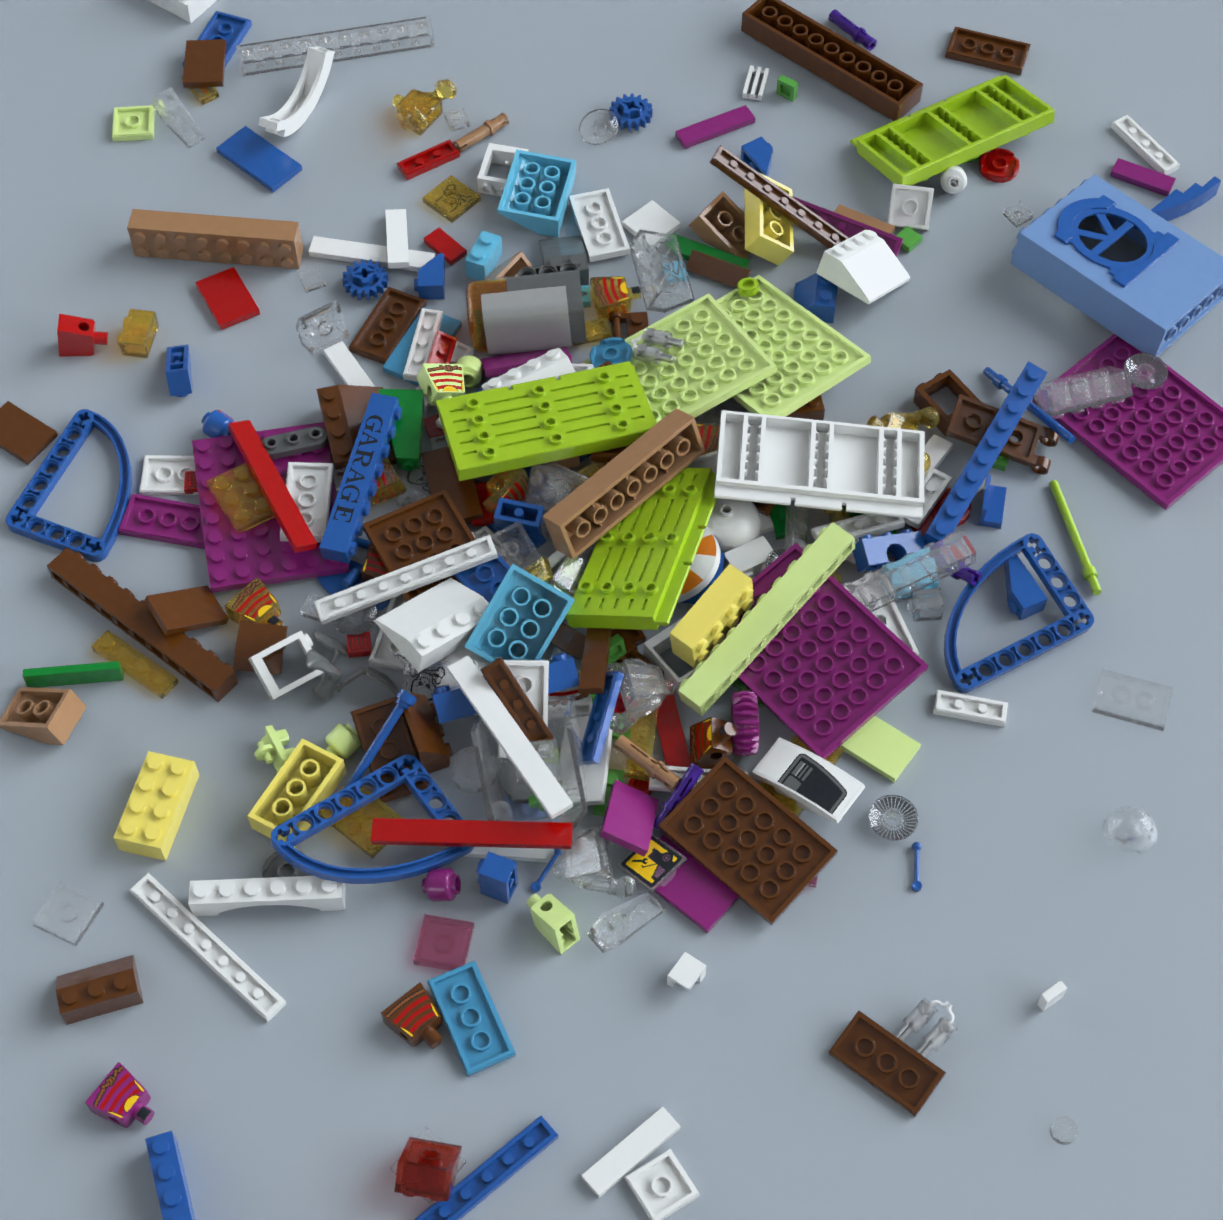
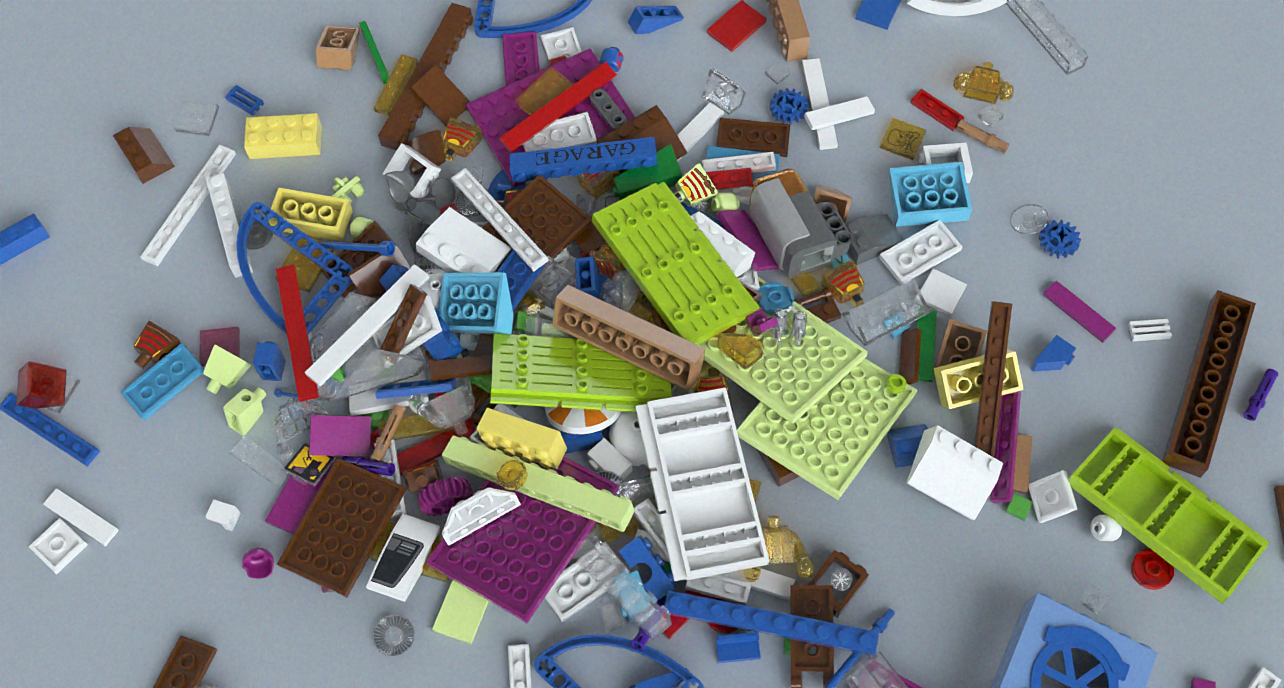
camera: 75 degrees right, 5 degrees up
(70, 851) = (239, 104): none -> blue tile
(121, 1099) = (68, 193): torso -> none
(431, 279) = (810, 150): blue slope -> none
(441, 884) = (261, 329): magenta head -> none
(442, 243) = (850, 150): red tile -> none
(483, 256) = (847, 178): medium azure brick -> none
(485, 936) = (224, 369): none -> yellowish green torso
(649, 366) = (760, 322): none -> magenta bracket
(674, 389) = (741, 348): none -> clear yellow slope
(761, 627) = (512, 475): none -> clear yellow hair
(763, 943) = (258, 563): none -> magenta hair
(782, 686) = (477, 511): none -> white wedge
(787, 88) = (1154, 356): bright green plate -> none
(916, 885) = (341, 670): blue hinge -> none
(950, 389) = (841, 579): none -> clear tile

